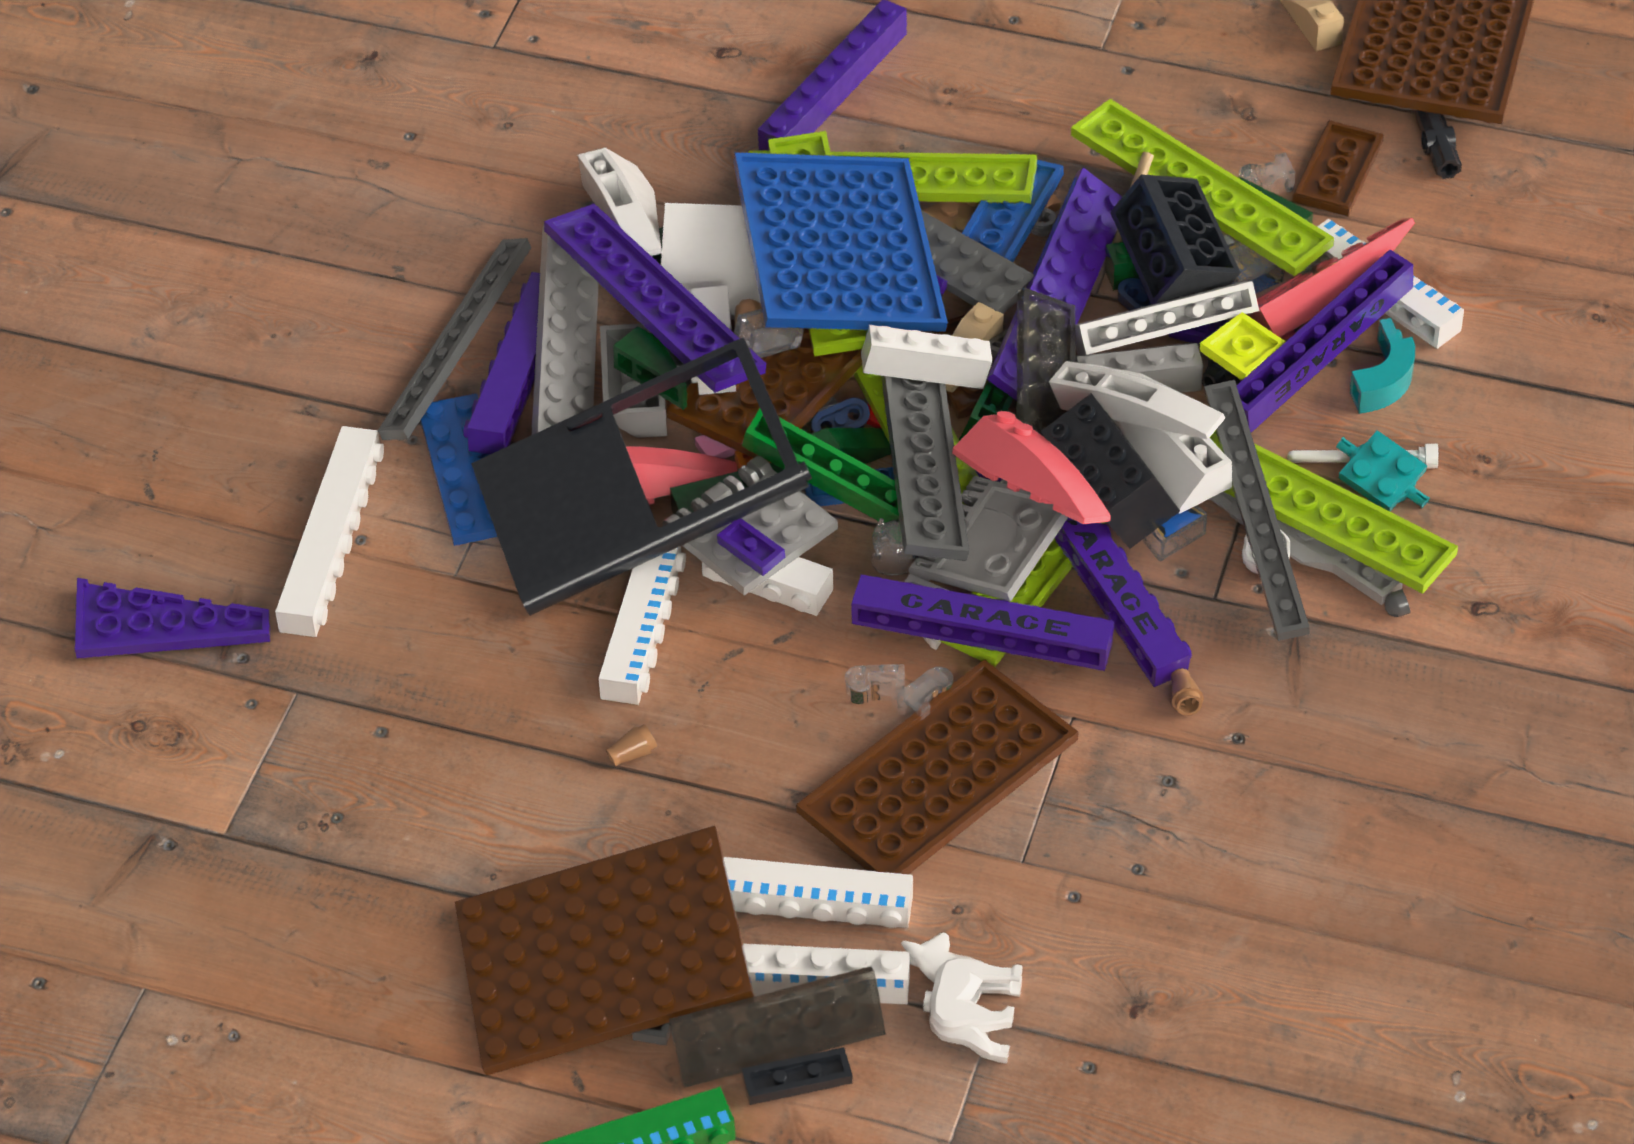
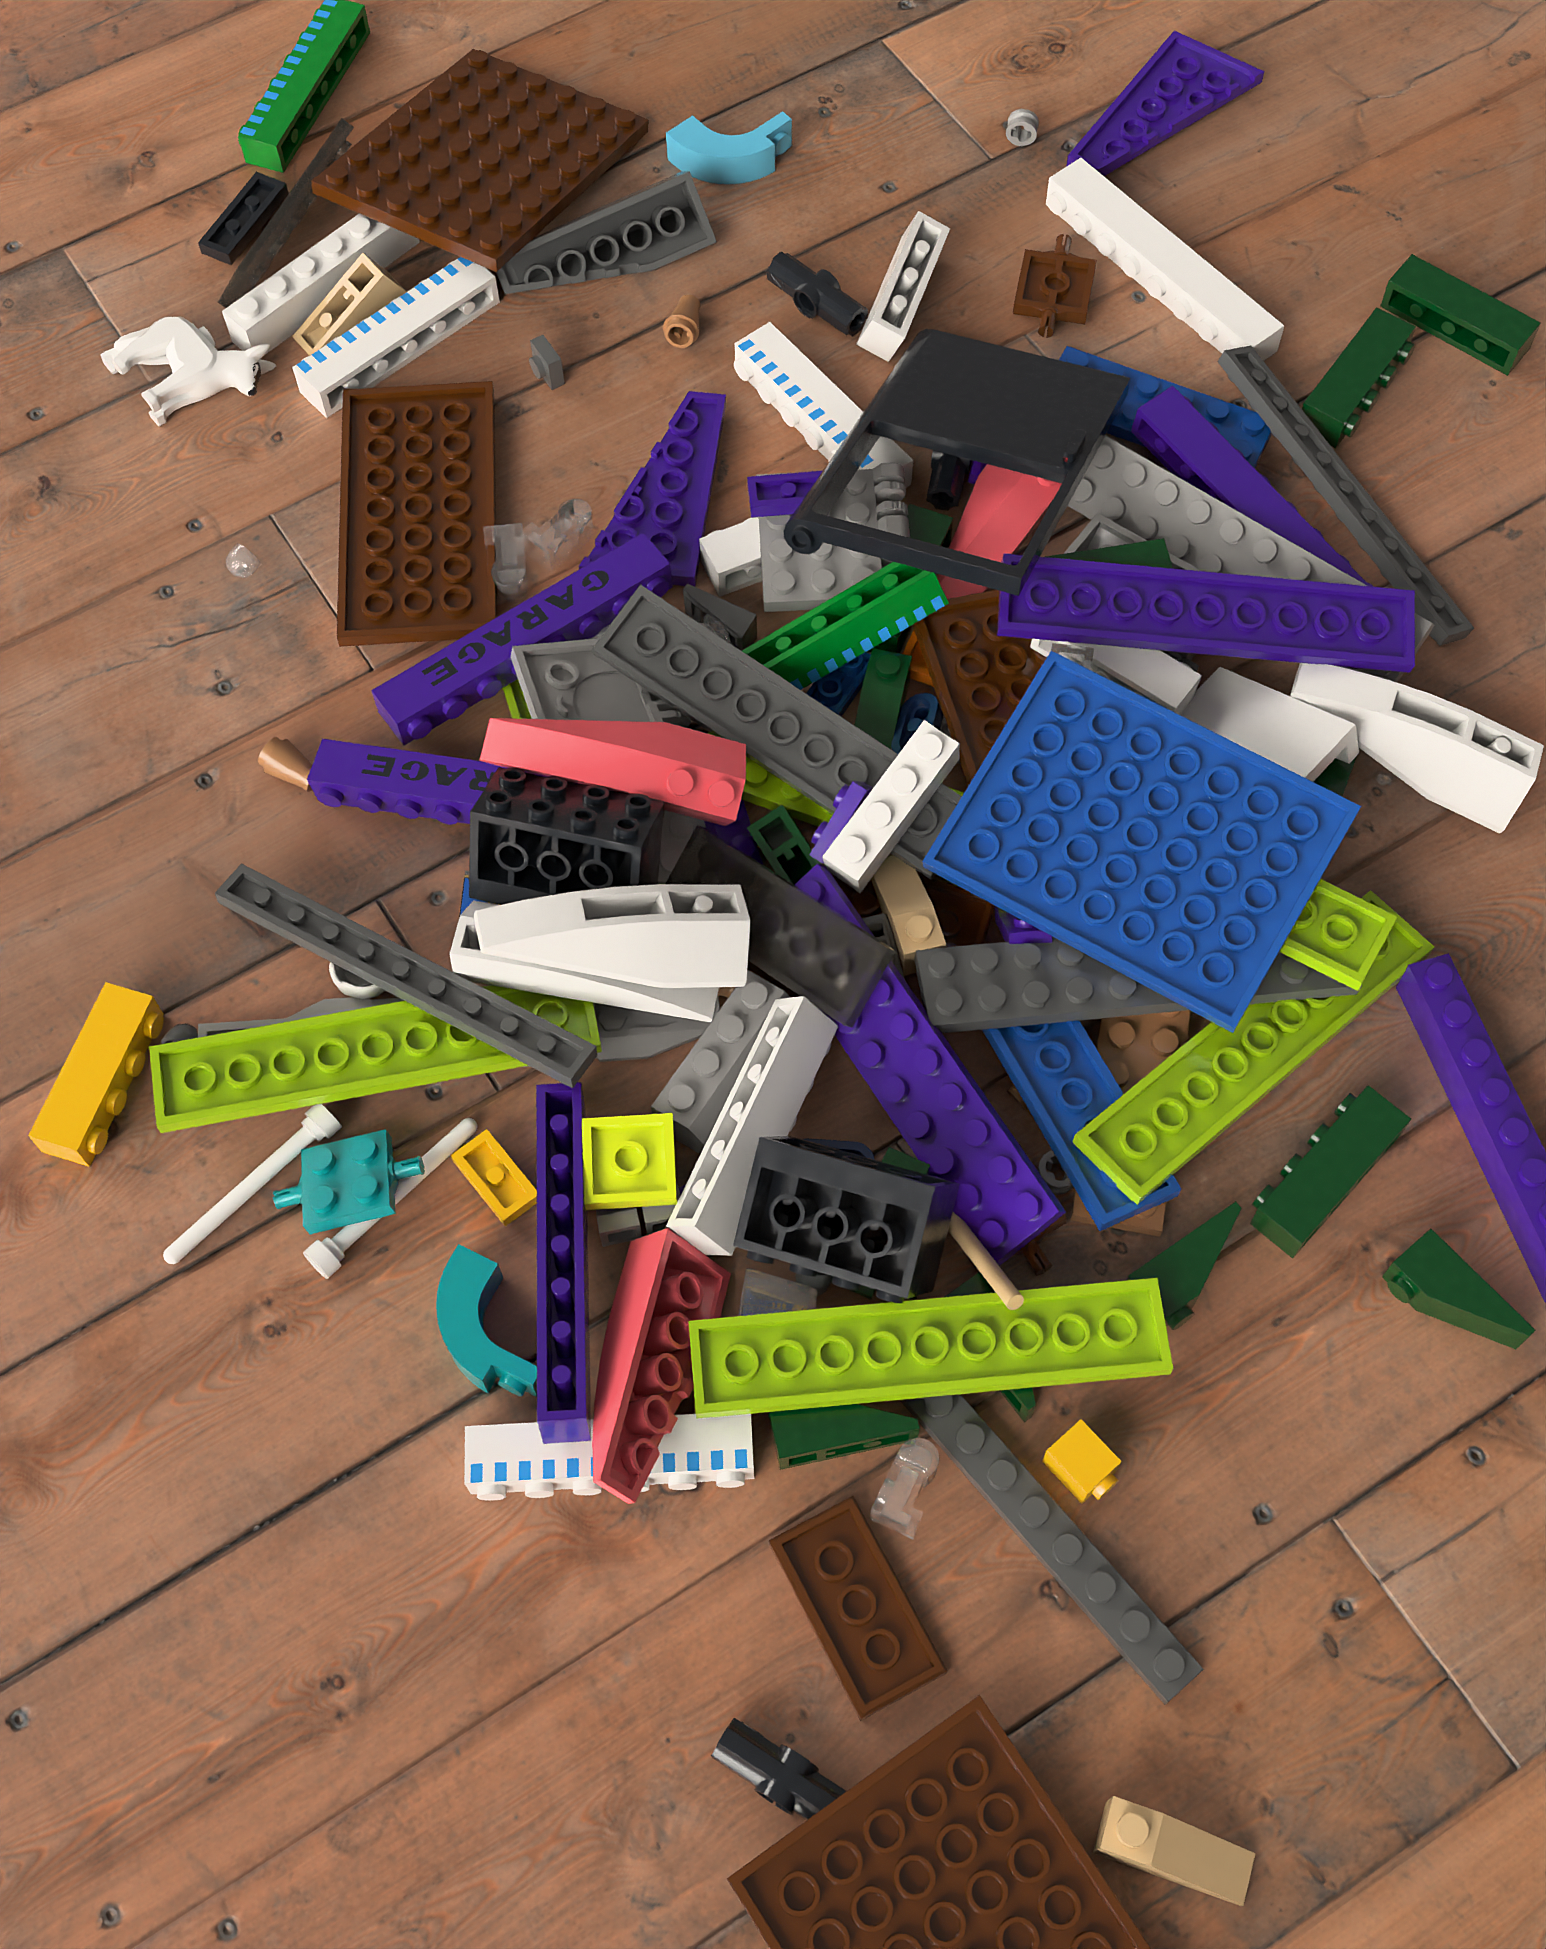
camera: 130 degrees right, 15 degrees up
(235, 366) = (1460, 314): none -> dark green brick
(258, 679) = (1024, 118): none -> light grey bush
(342, 384) = (1358, 375): none -> dark green brick
(403, 573) = (1054, 286): none -> reddish brown plate
(446, 817) = (728, 157): none -> medium azure arch
(490, 637) = (903, 286): none -> white brick
(535, 690) = (817, 294): none -> black piece
(571, 822) = (616, 239): none -> dark grey wedge
(748, 790) = (546, 362): none -> dark grey plate
(797, 649) = (673, 490): none -> dark purple wing
(801, 925) = (355, 297): none -> tan slope
(855, 554) = (736, 621): none -> dark grey slope
(927, 124) = (1329, 1171): none -> dark green brick
(945, 58) = (1448, 1289): none -> dark green slope
(955, 379) = (847, 803): none -> dark purple plate
(1049, 141) = (1187, 1265): none -> dark green slope
(1076, 834) = (241, 562): none -> clear hinge
(1183, 124) = (1083, 1463): none -> yellow brick
(1229, 106) = (1057, 1543): none -> dark grey plate
(1306, 420) = (495, 1177): none -> yellow plate
(1449, 517) = (316, 1125): none -> white piece
(1459, 621) = (97, 1075): none -> yellow brick

